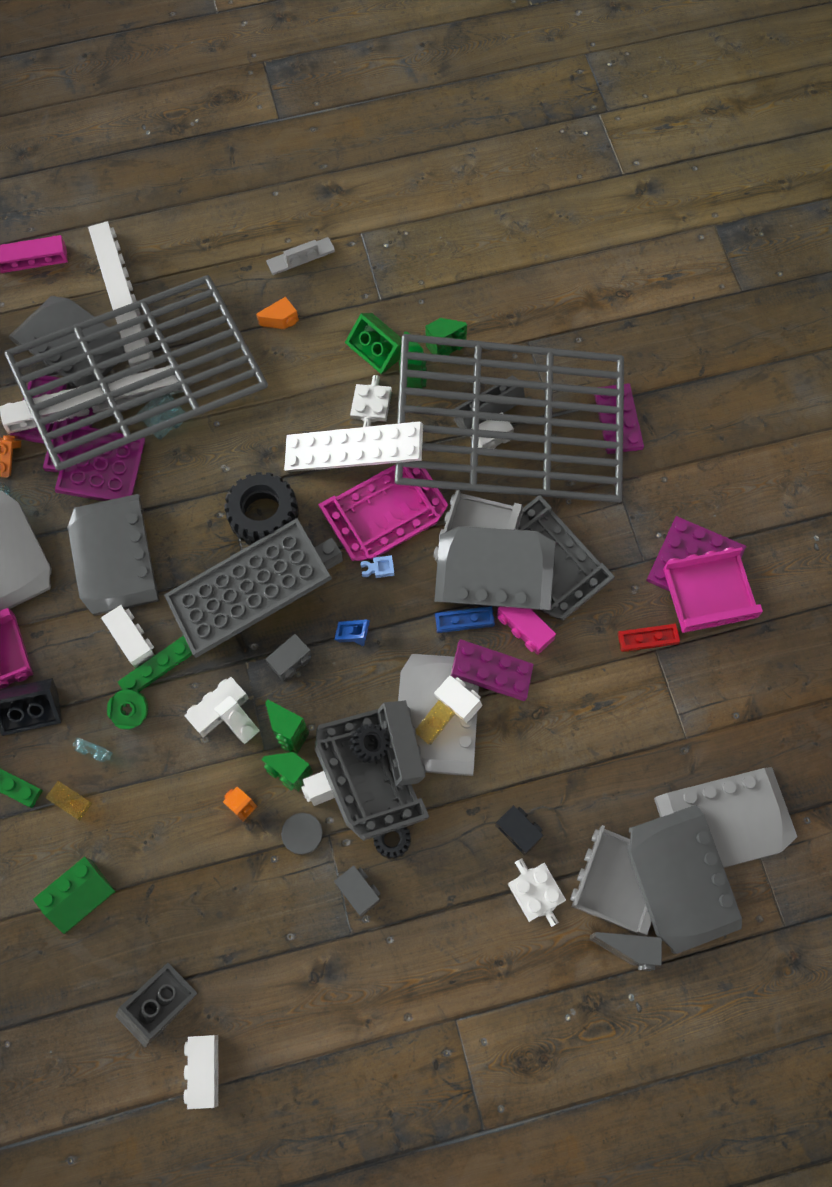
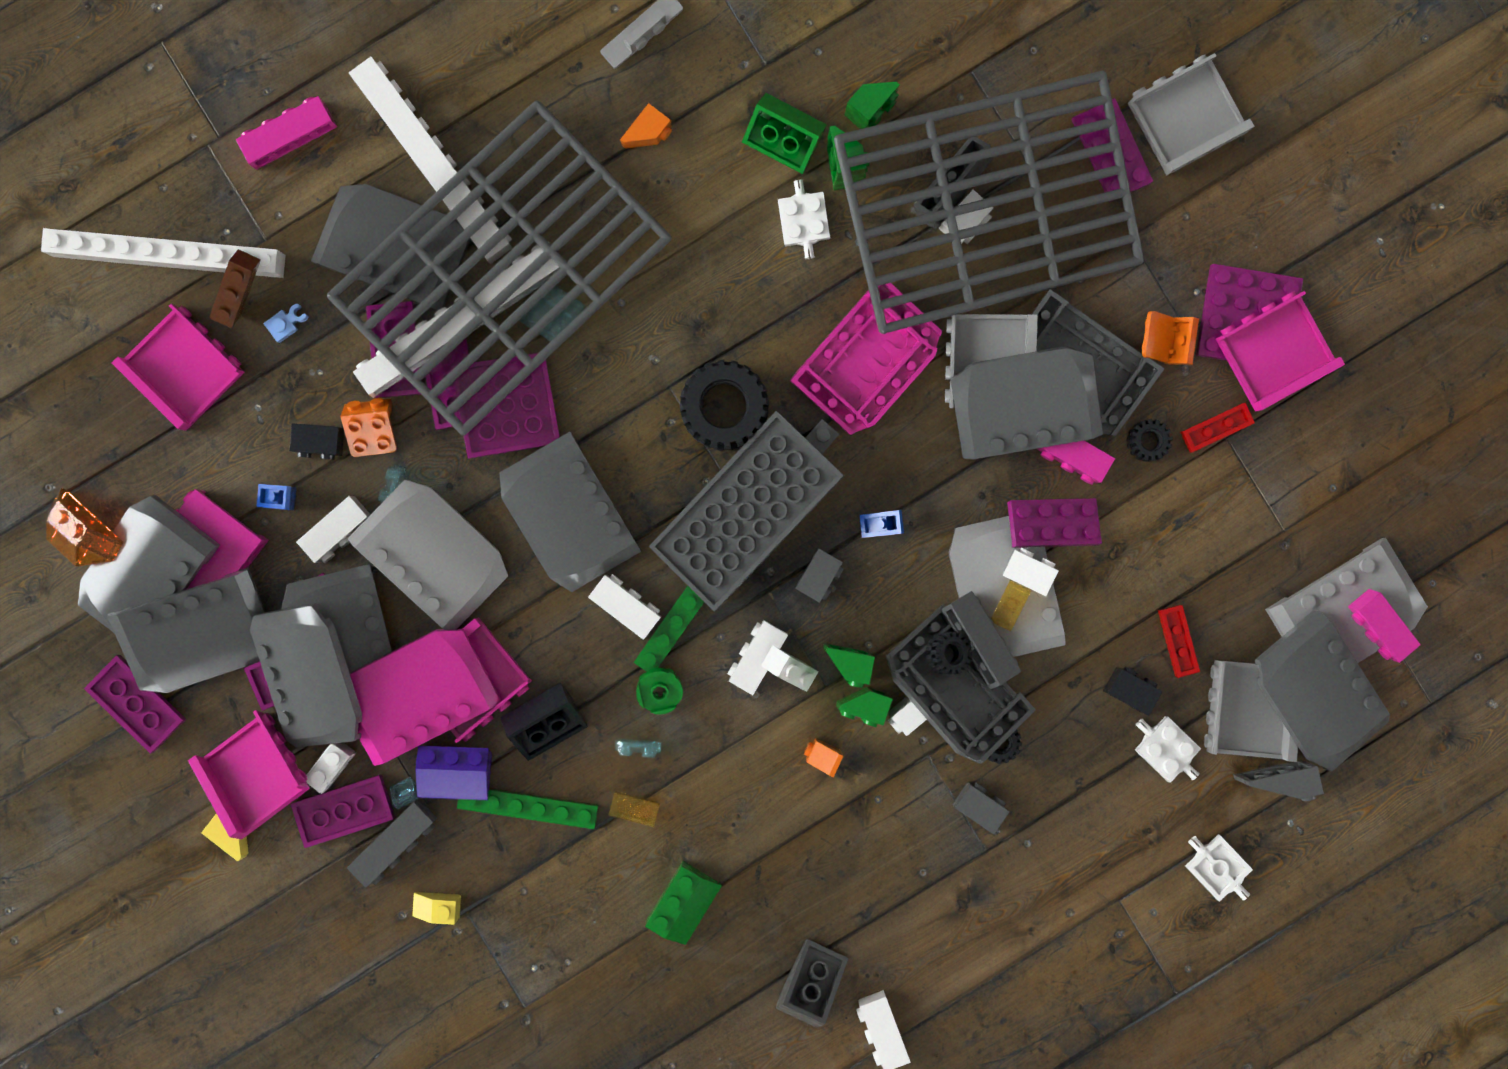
camera: 15 degrees left, 20 degrees up
(302, 833) = (900, 765): dark grey tile -> none
(354, 447) = (813, 298): white plate -> none
(381, 567) = (887, 433): light blue plate -> none
(464, 619) = (1000, 468): blue tile -> none
(553, 1016) = (1219, 868): none -> white plate
(571, 800) = (1178, 641): none -> red plate
(596, 622) = (1162, 435): none -> black tyre
(624, 558) = (1170, 338): none -> orange bracket
(683, 408) = (1188, 114): none -> light grey panel
(751, 836) = (1383, 626): none -> dark pink brick

